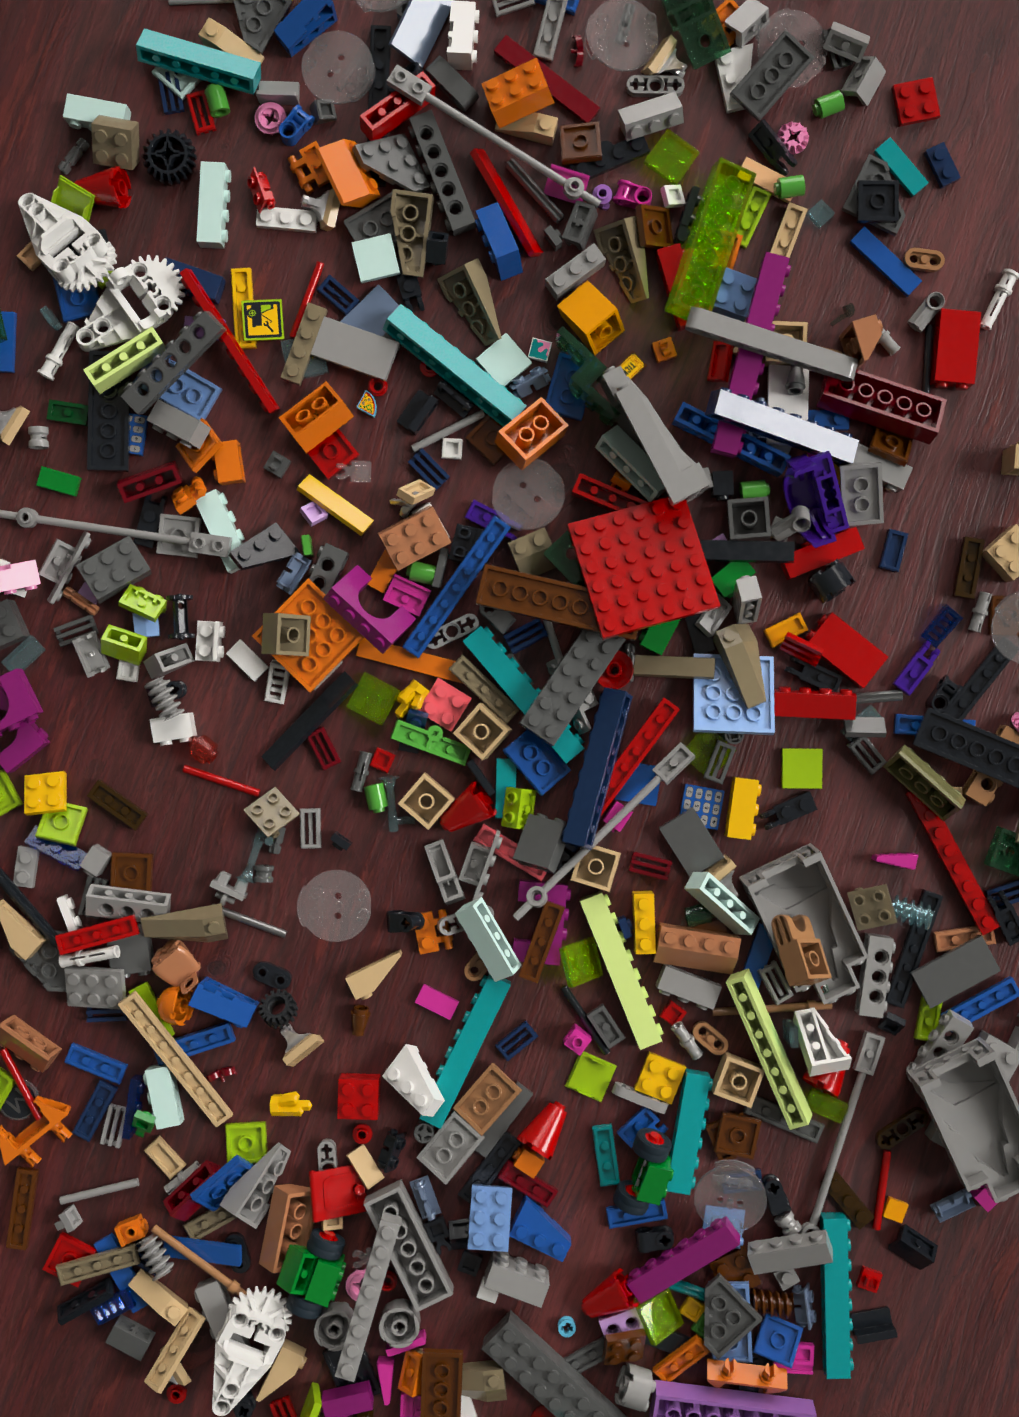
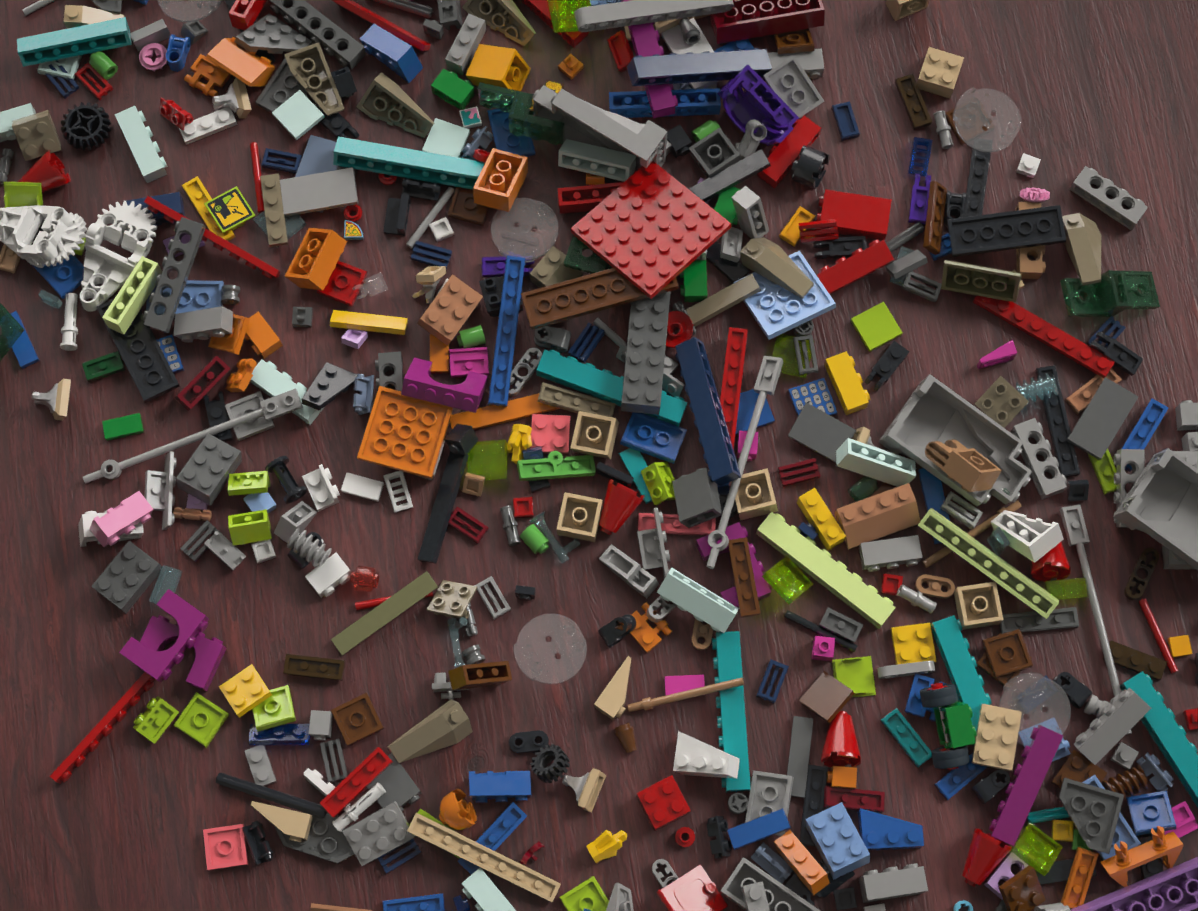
camera: 25 degrees left, 15 degrees down
(38, 437) = (88, 399): light grey wheel -> none
(122, 902) = (358, 742): light grey brick -> none
(176, 965) = (440, 773): nougat piece -> none
(205, 790) = (384, 613): none -> olive tile
(220, 406) = (230, 294): none -> dark grey wheel
(254, 922) = (491, 704): flat silver bar -> none
(256, 900) = (480, 675): none -> reddish brown brick
(286, 634) = (385, 437): dark tan slope -> none
(307, 545) = (363, 366): bright green tile -> none
(348, 714) = (473, 484): none -> medium nougat tile
(358, 668) = (461, 439): none -> black brick
(365, 1166) = (703, 864): tan tile -> none
(396, 1001) = (649, 703): none -> medium nougat bar
(428, 1167) = (759, 829): none -> blue tile
(440, 569) = (485, 325): dark grey tile -> none
(448, 1217) = (801, 862): none -> orange brick
(487, 1099) = (776, 743): medium nougat plate -> none
(528, 397) = (481, 155): none -> red tile
(538, 312) = (453, 89): none -> green brick
(555, 1084) = (826, 697): none -> tile
(682, 1206) = (996, 737): none -> tan plate
(919, 696) = (935, 217): none -> reddish brown tile

